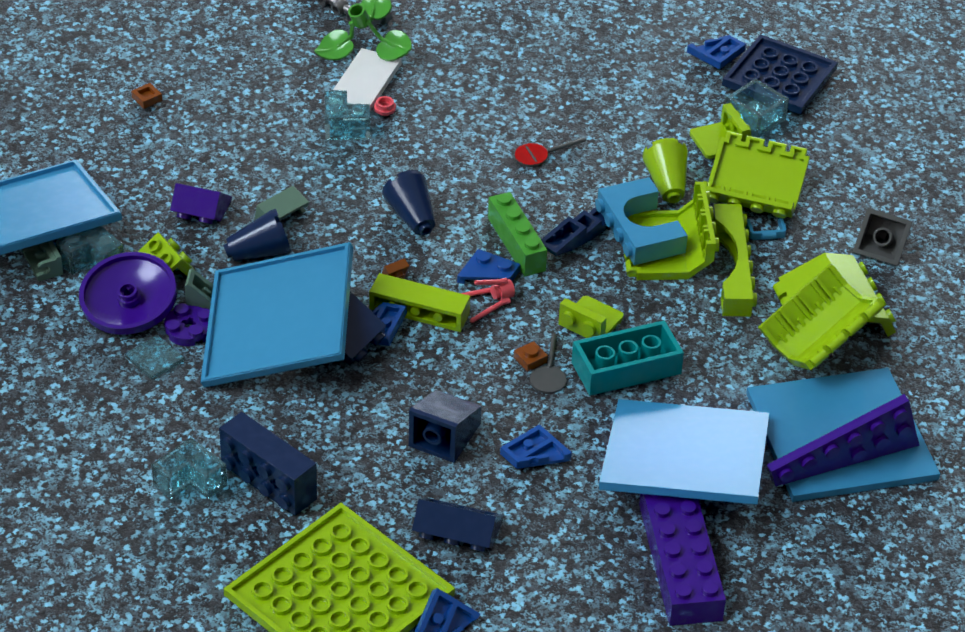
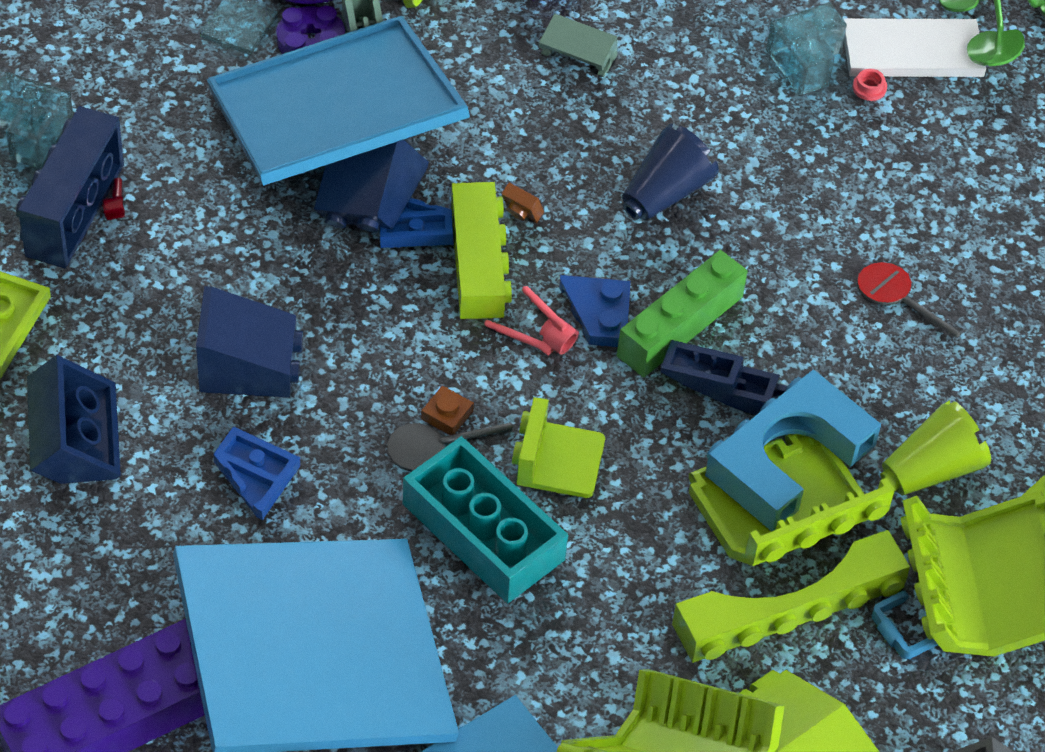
camera: 65 degrees right, 10 degrees up
(259, 239) = (502, 44): dark blue cone -> none

